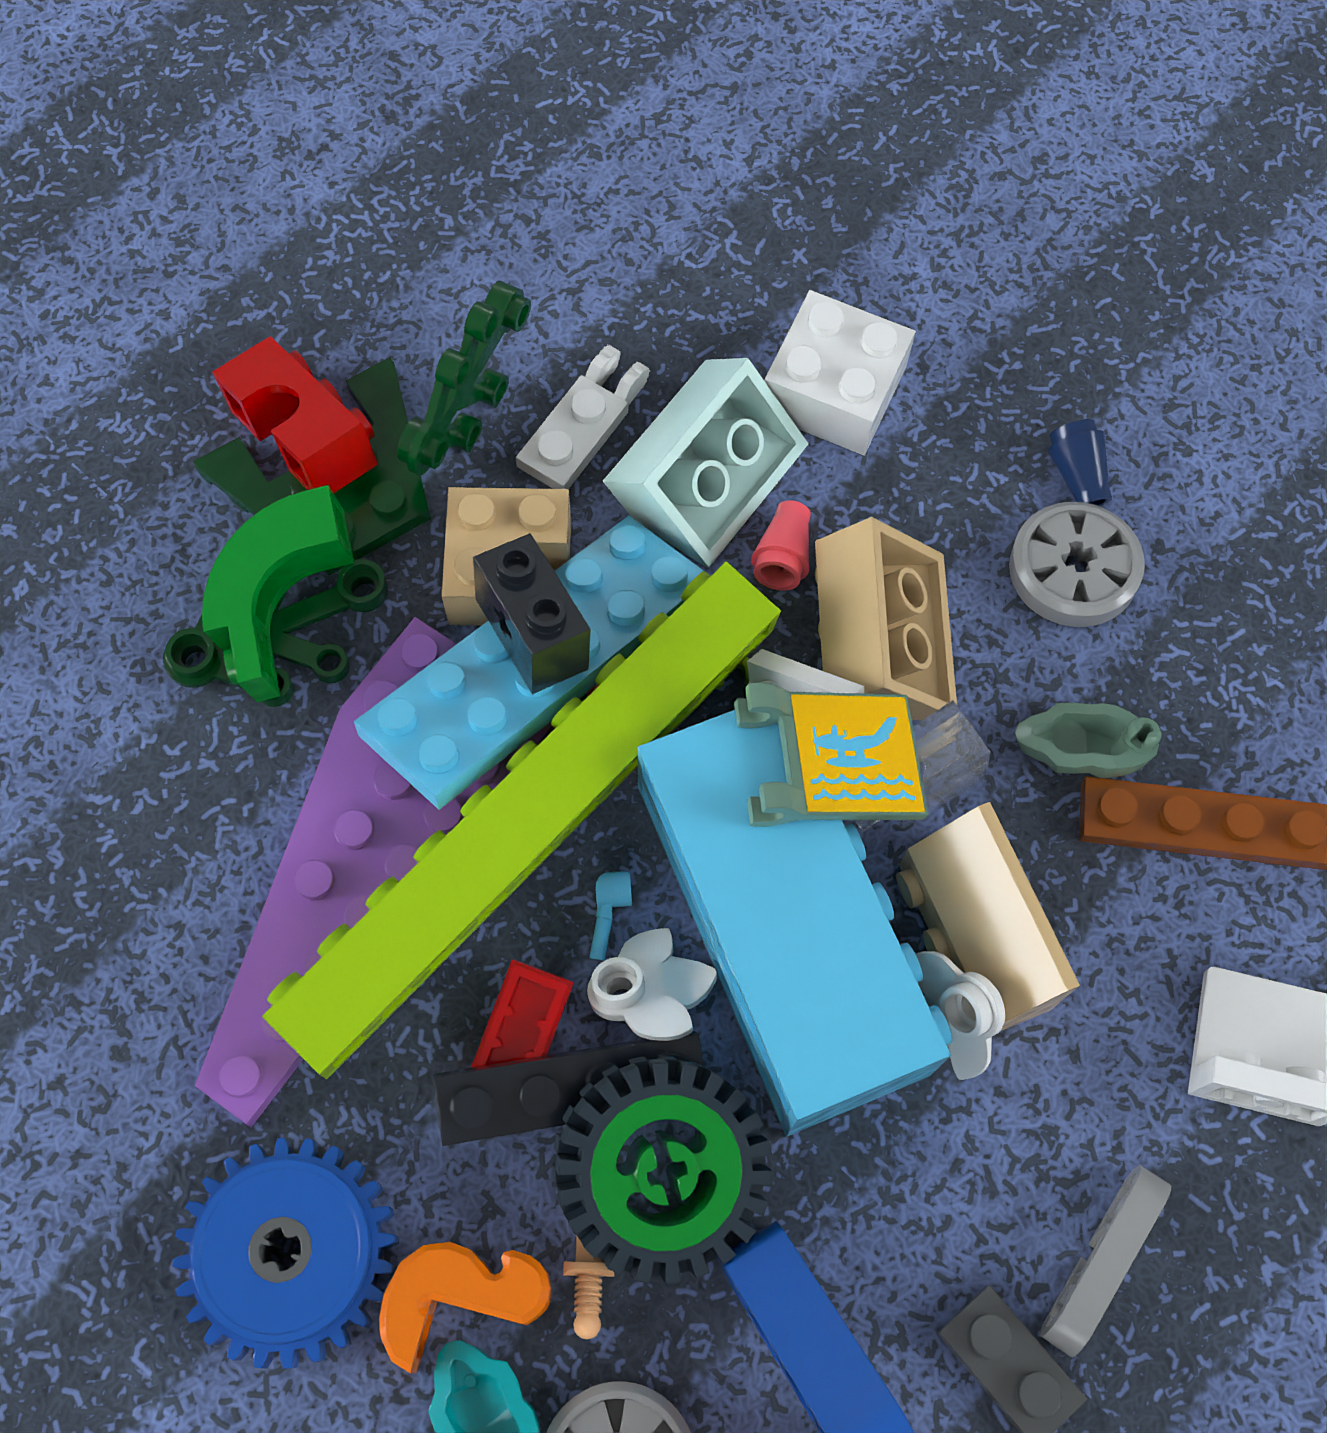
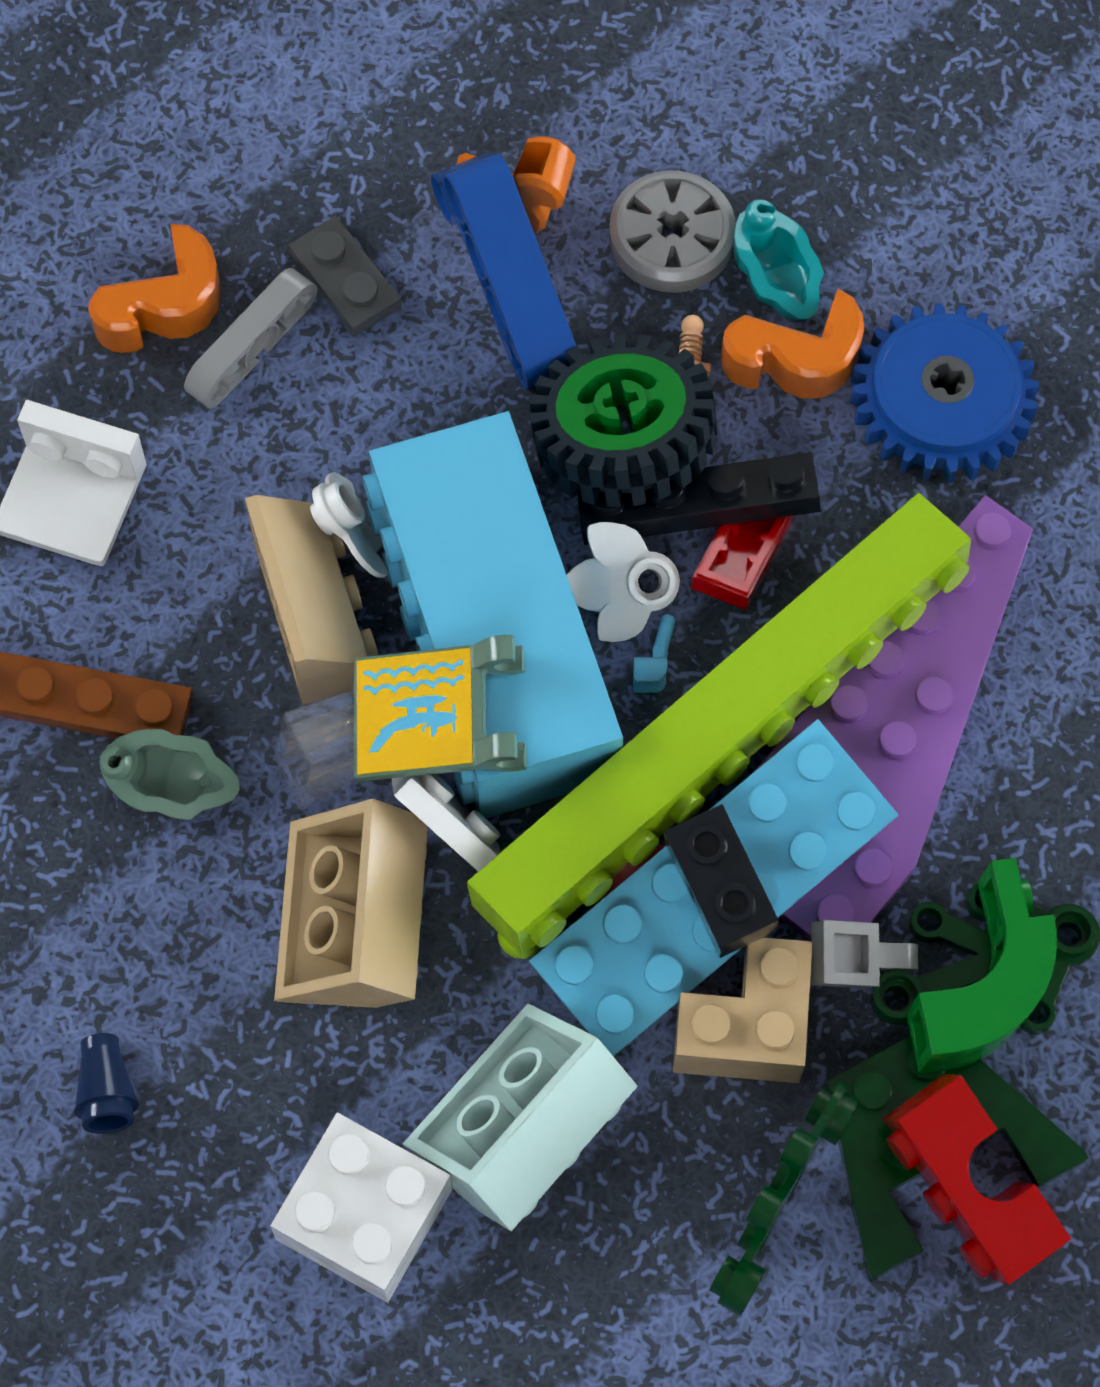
camera: 175 degrees left, 0 degrees up
(403, 605) = (853, 957): none -> light grey plate
(581, 422) = (656, 1182): white hinge -> none
(783, 551) = (445, 1009): coral cone -> none
(1058, 590) = (105, 947): light grey wheel -> none
(1199, 1295) = (162, 305): none -> orange animal

